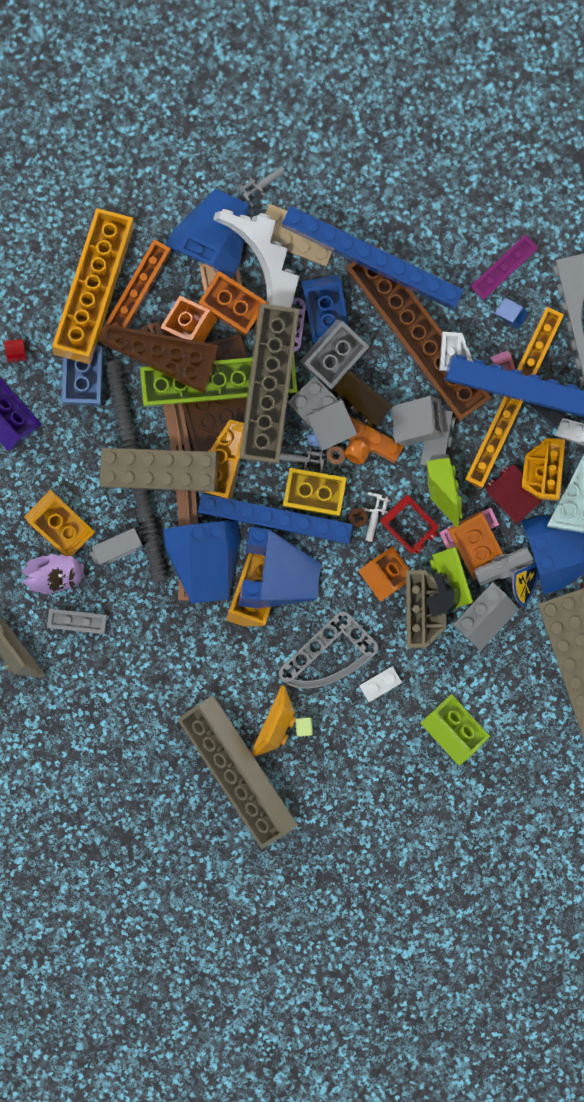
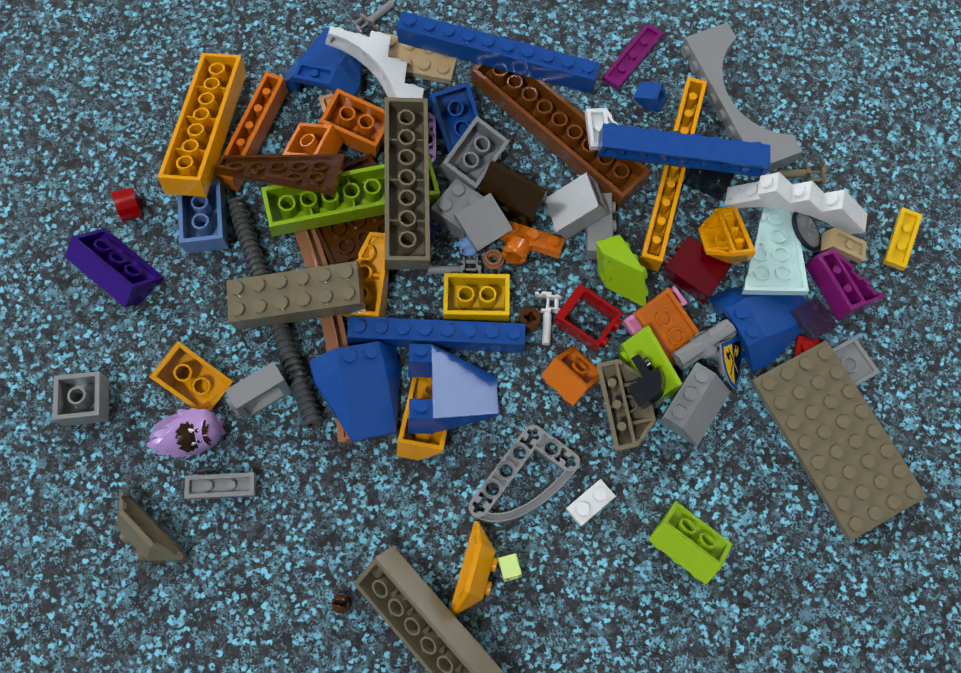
camera: 10 degrees left, 15 degrees down
(166, 728) = (340, 609): none -> reddish brown hinge

